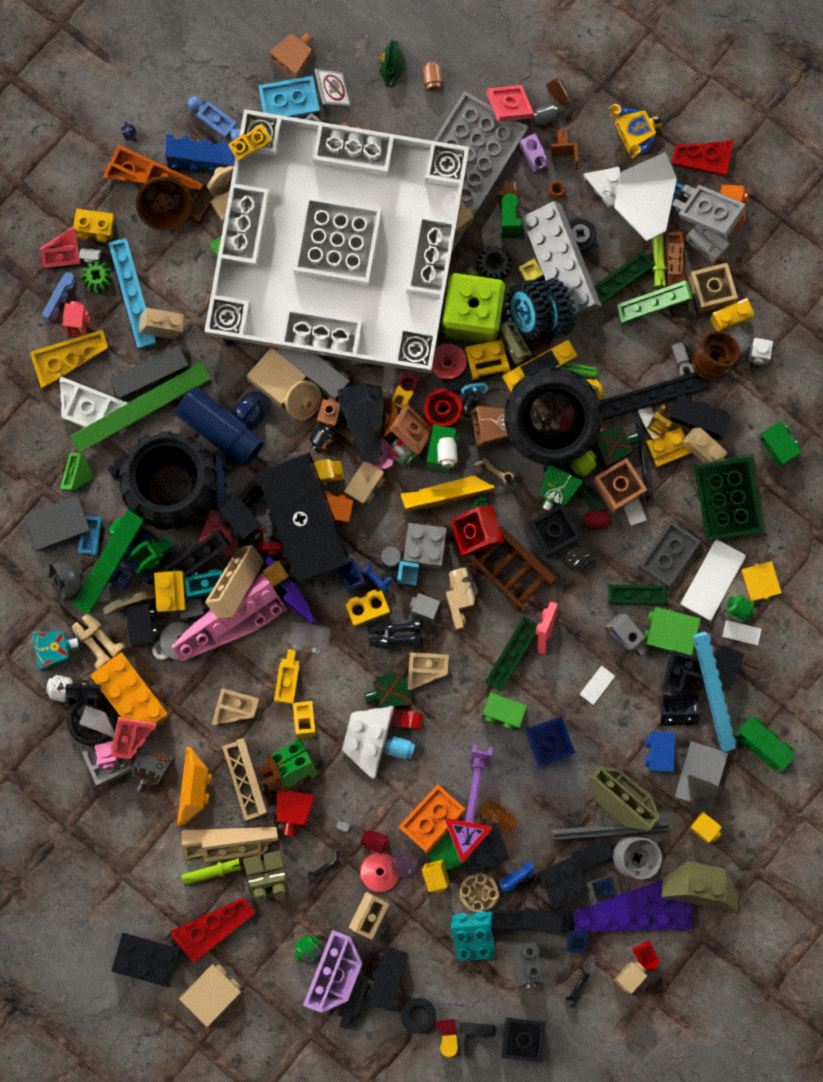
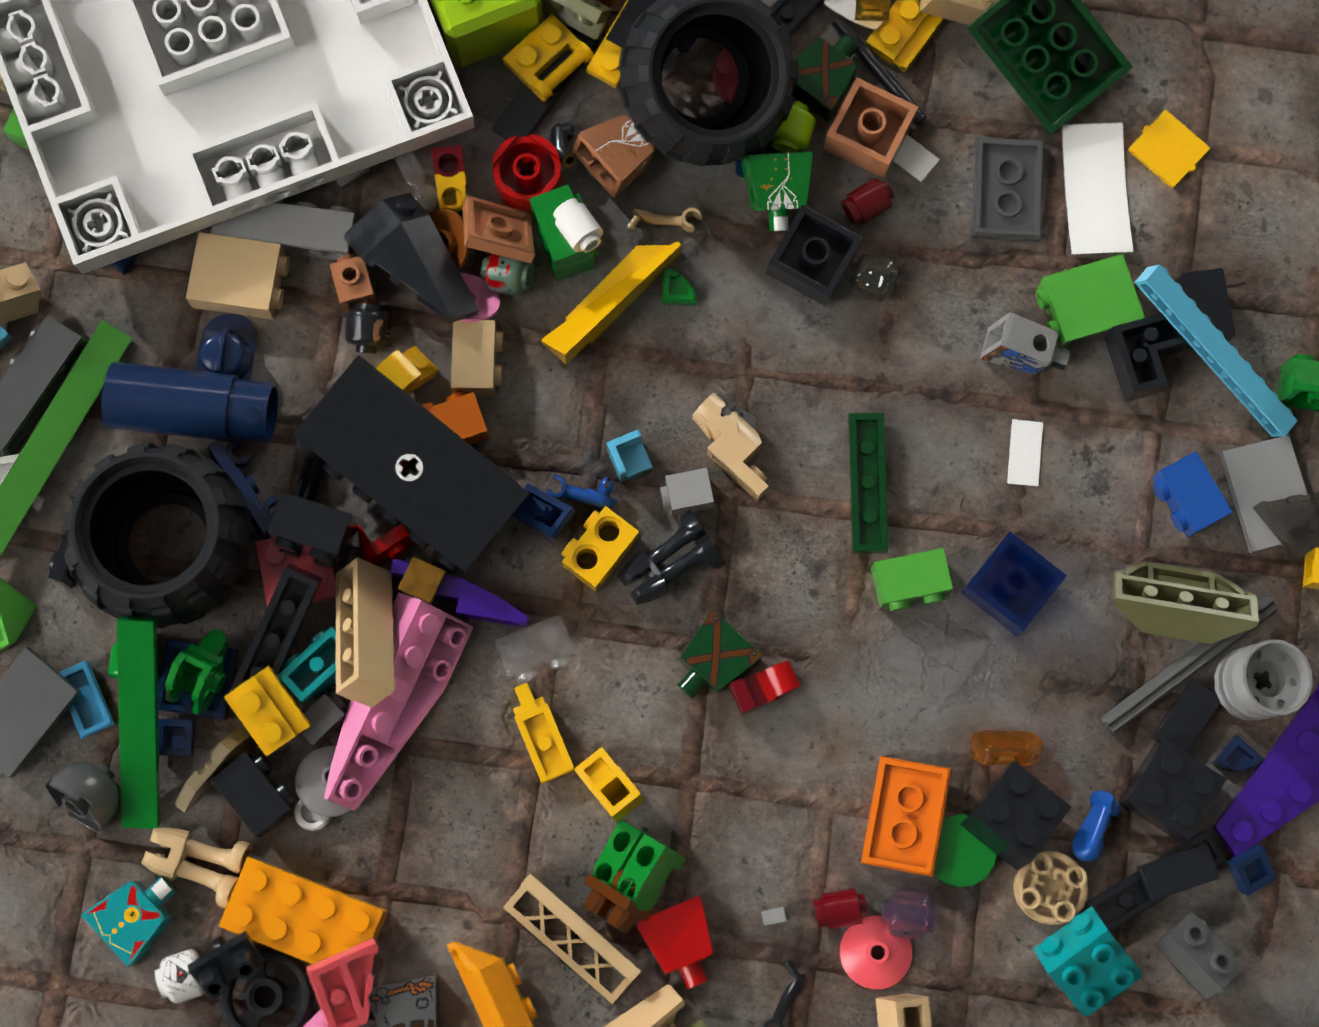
camera: 30 degrees left, 0 degrees up
(97, 721) = (275, 994): light grey slope -> none
(234, 707) = (484, 832): tan wing -> none
(303, 400) = (298, 285): tan piece -> none
(367, 737) = (725, 751): white wing -> none
(390, 556) = (585, 446): light grey tile -> none
(400, 748) = (786, 736): medium azure brick -> none
(425, 545) = (629, 396): light grey brick -> none
(426, 668) = (748, 586): tan wing -> none
(435, 876) = (970, 904): yellow brick -> none
(452, 354) = (491, 83): coral dish -> none
(467, 834) = (983, 808): medium lavender piece -> none
(476, 530) = (696, 324): red brick -> none
(480, 387) = (563, 107): medium azure piece -> none
(530, 564) = (808, 328): reddish brown fence -> none
(545, 628) = (894, 413): coral wing -> none
(580, 983) = (1296, 941): black piece -> none
(593, 504) = (846, 181): clear green piece -> none
(636, 594) = (997, 279): dark green tile -> none
(679, 710) = (1175, 414): black bracket -> none
(740, 608) = (1167, 205): green head -> none
(741, 632) = (1189, 242): white sticker -> none

